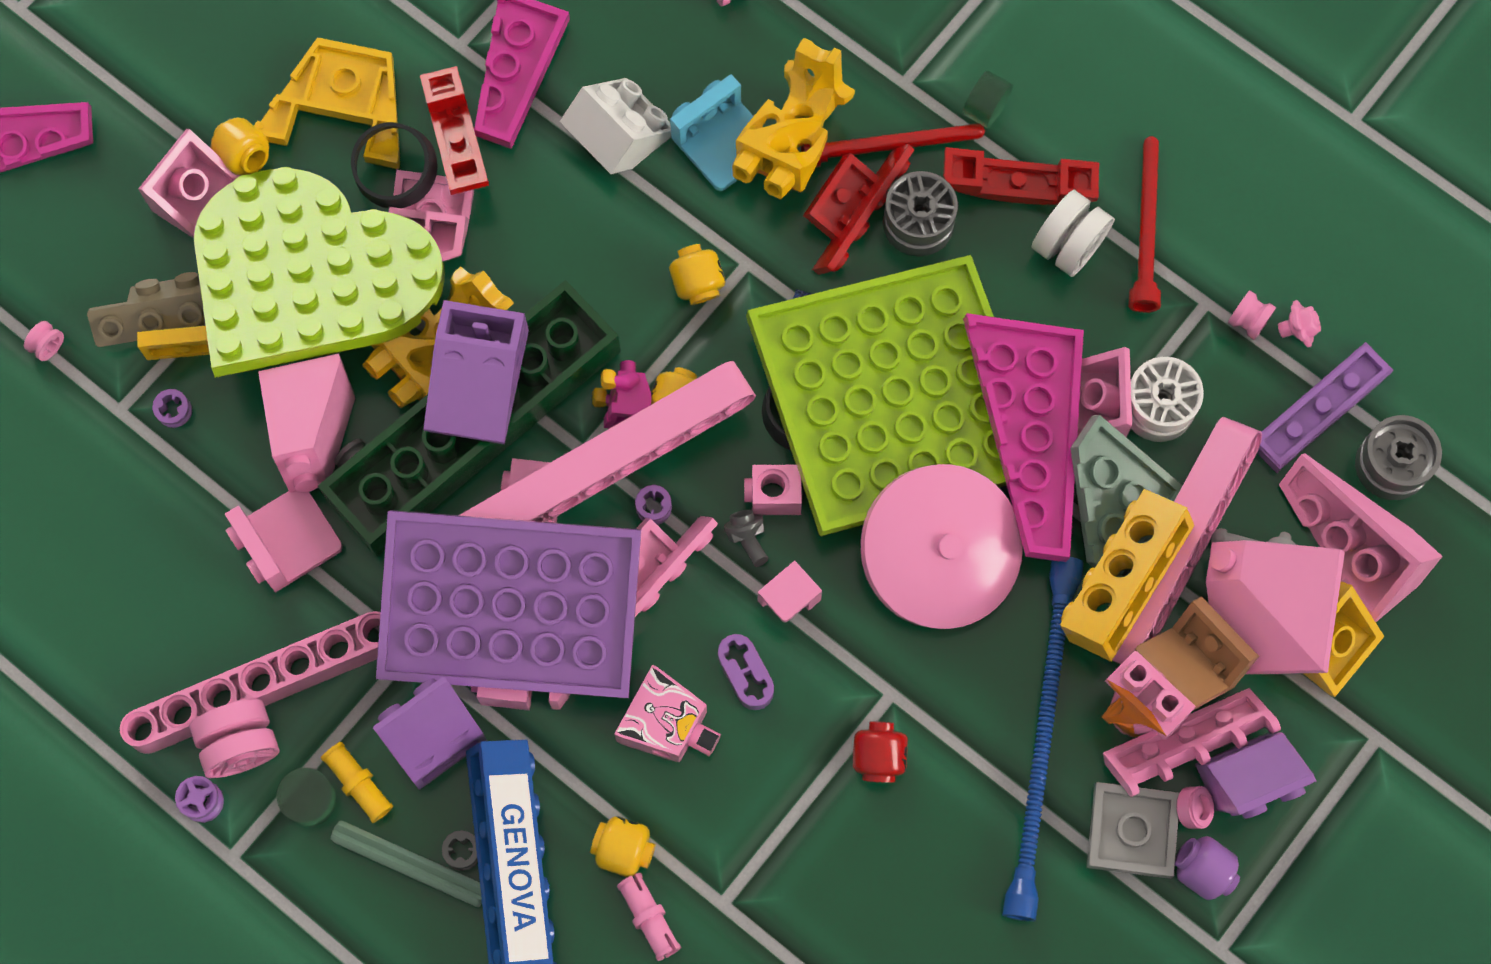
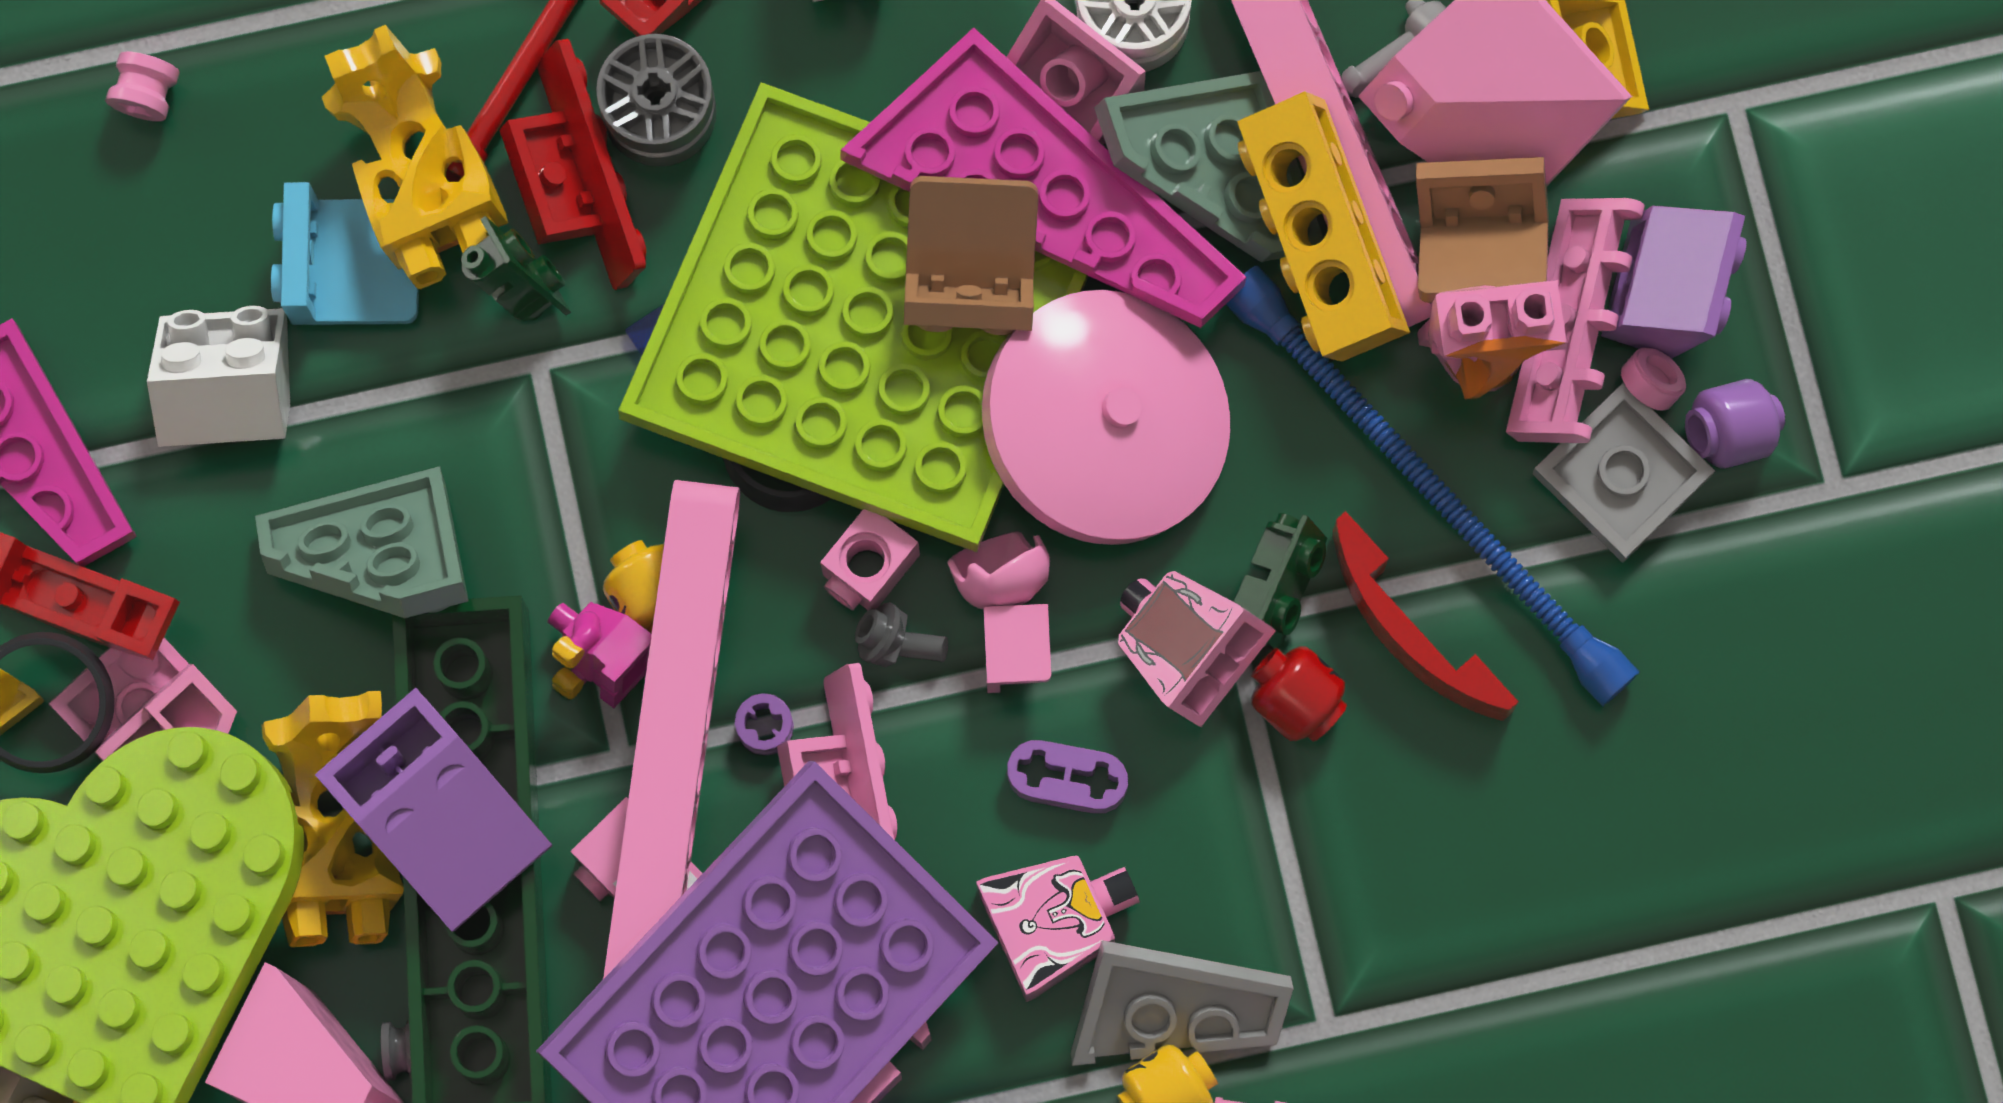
camera: 50 degrees left, 5 degrees up
(590, 253) = (372, 545): none -> sand green plate
(666, 804) = (1164, 998): none -> light grey wing
(697, 274) = (509, 435): yellow head -> none
(776, 213) = (513, 276): none -> dark green hinge
(821, 557) = (1002, 571): none -> bright pink hair
(858, 676) = (1189, 642): none -> torso
(950, 696) = (1292, 554): none -> dark green hinge
(957, 834) = (1469, 686): none -> red slope
(965, 413) = (970, 254): none -> medium nougat bracket

